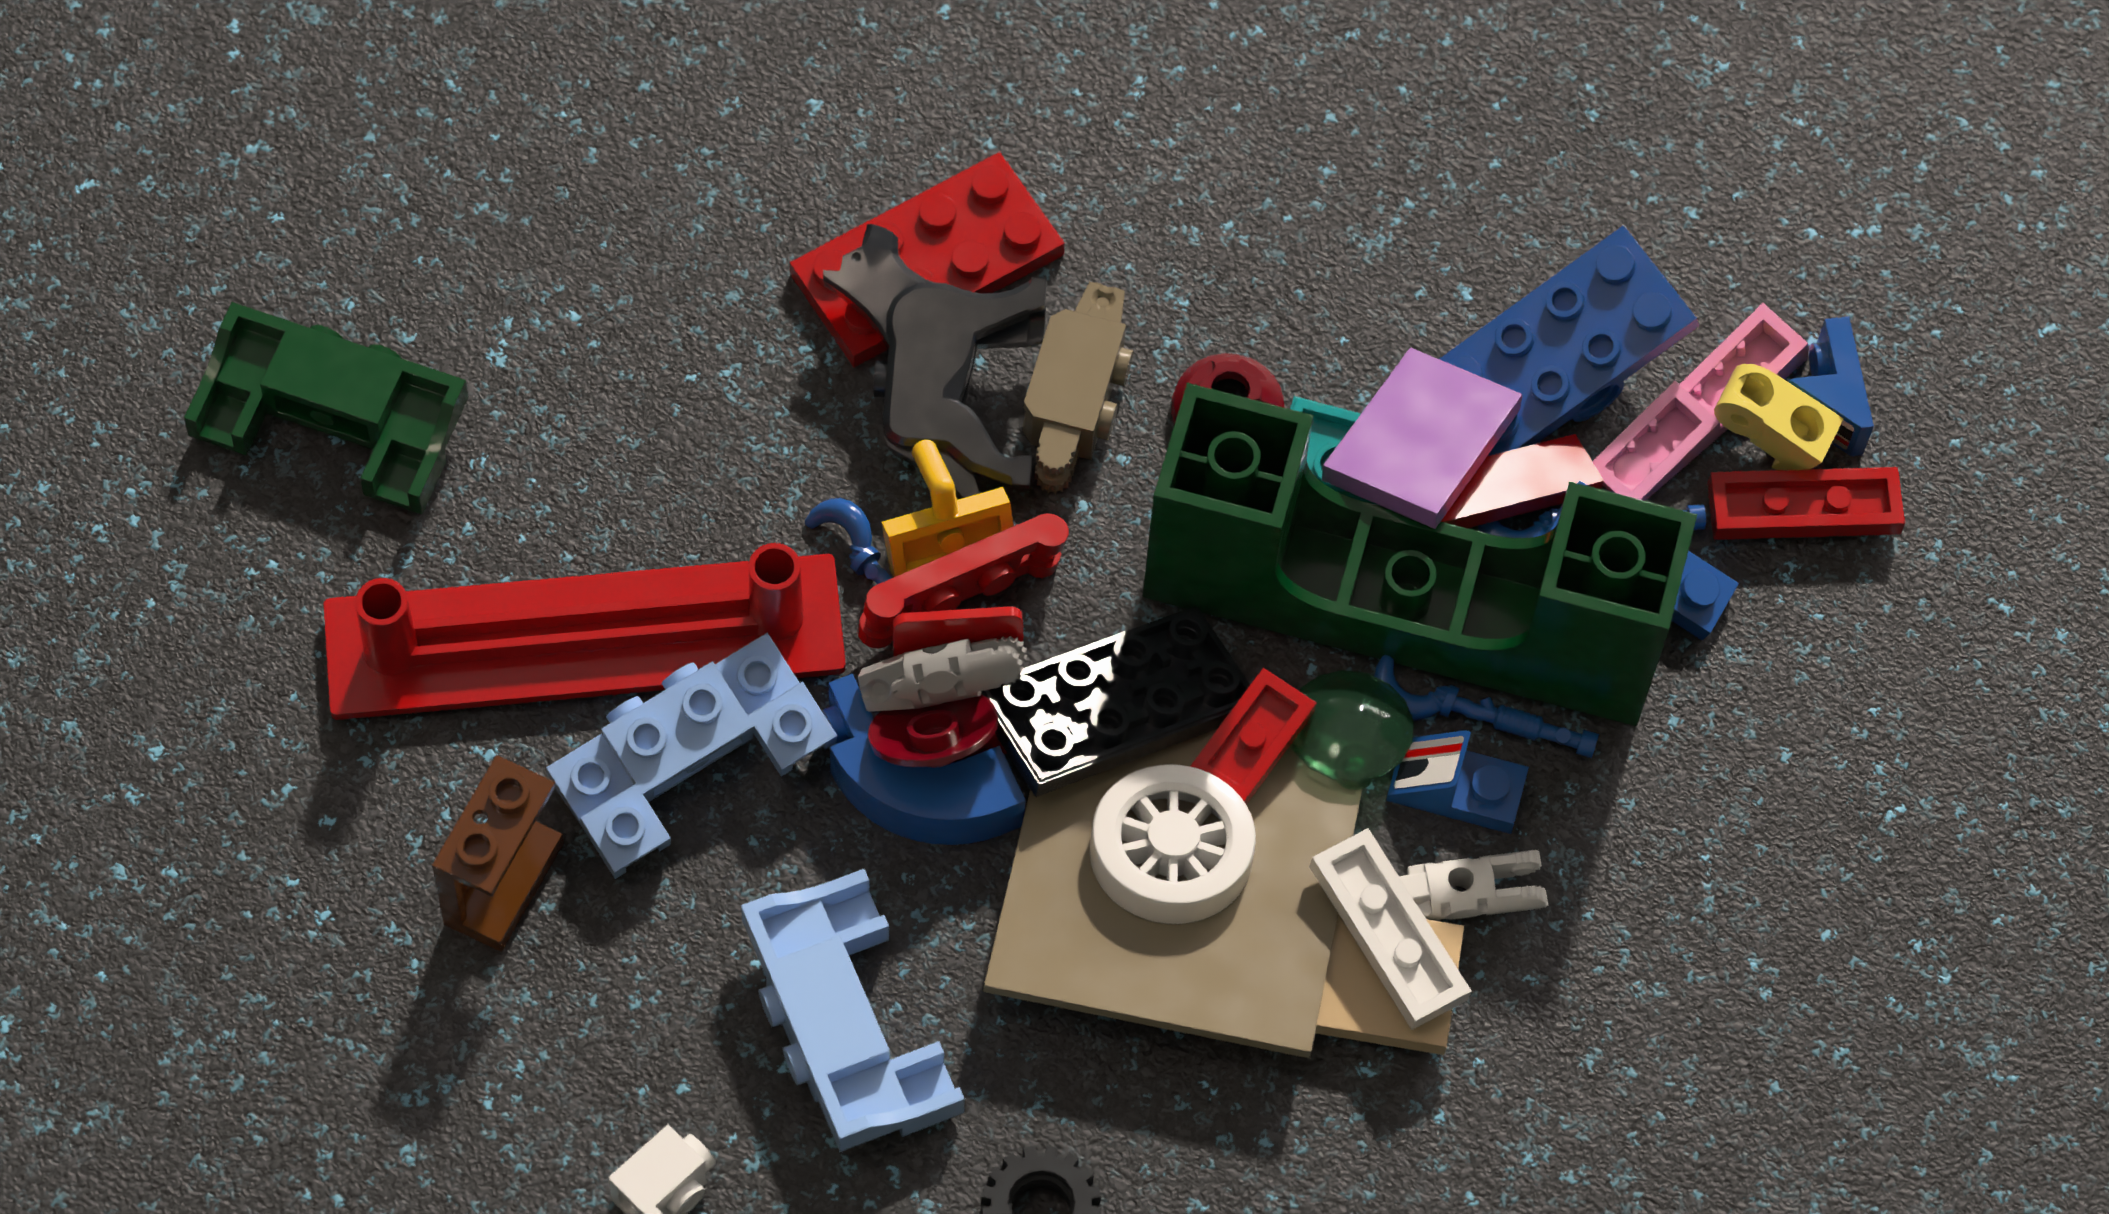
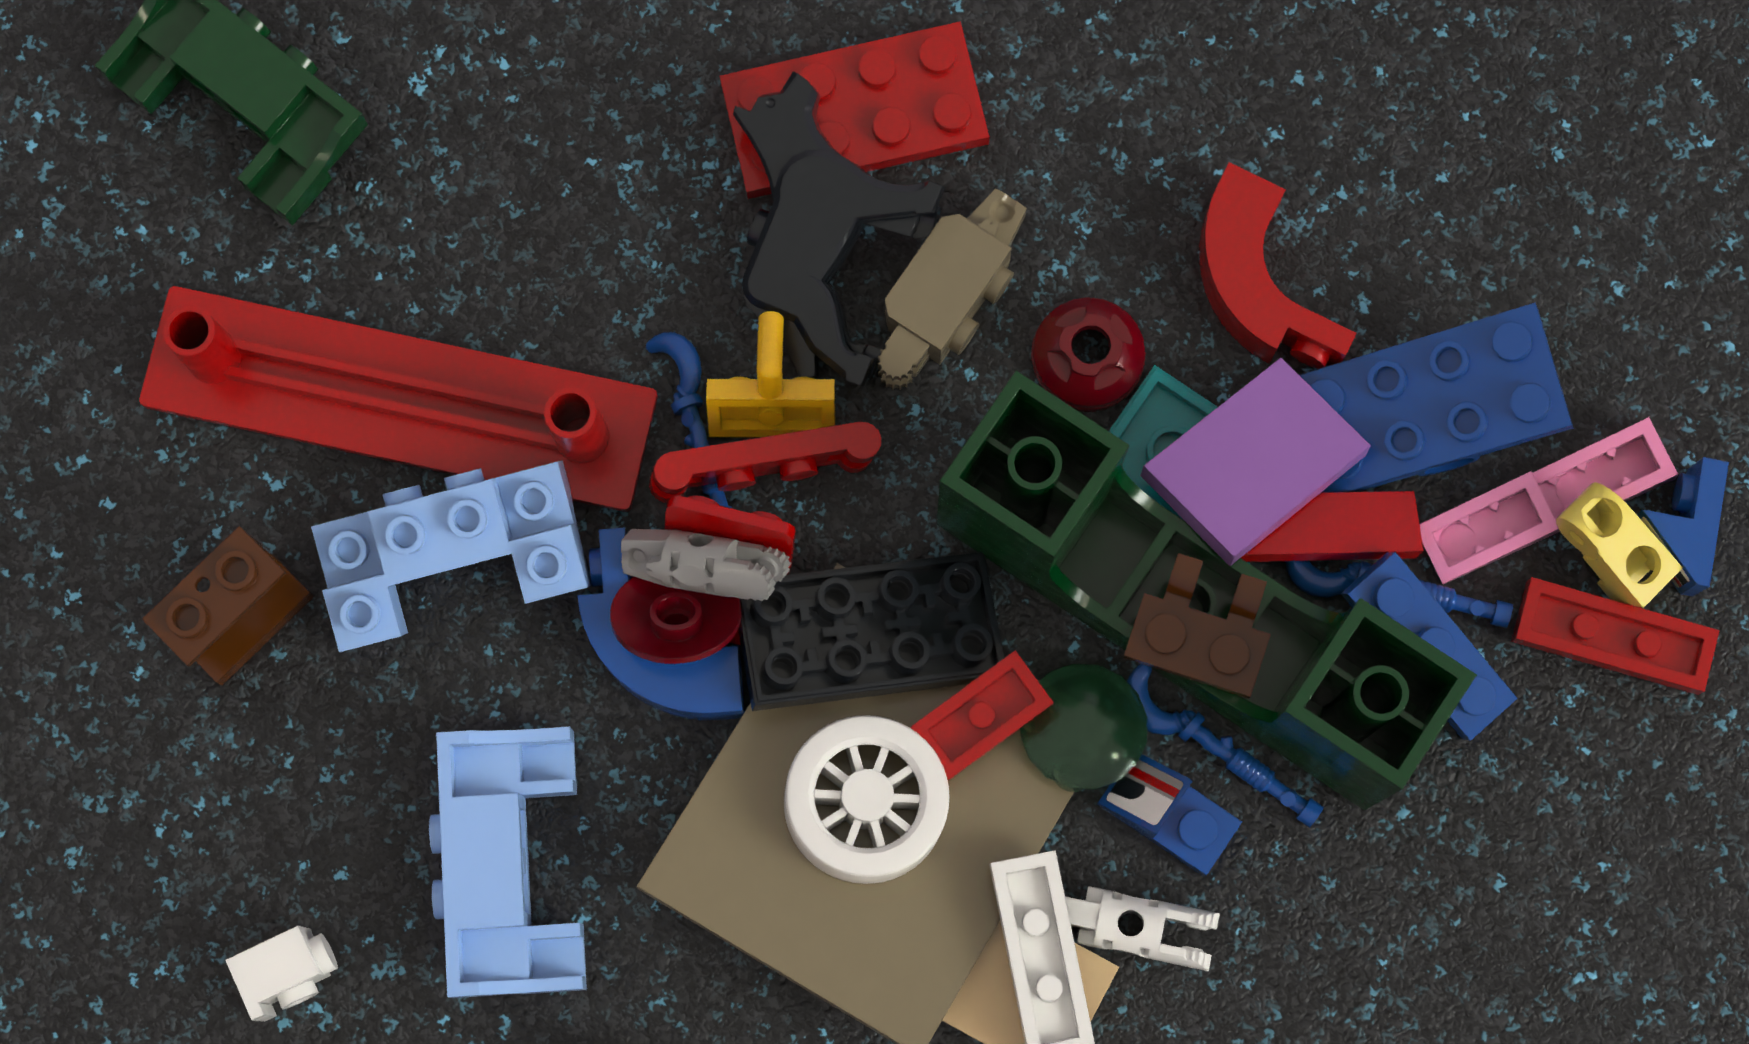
camera: 25 degrees right, 15 degrees up
(1350, 303) = (1241, 286): none -> red arch
(1431, 601) = (1197, 643): none -> reddish brown plate

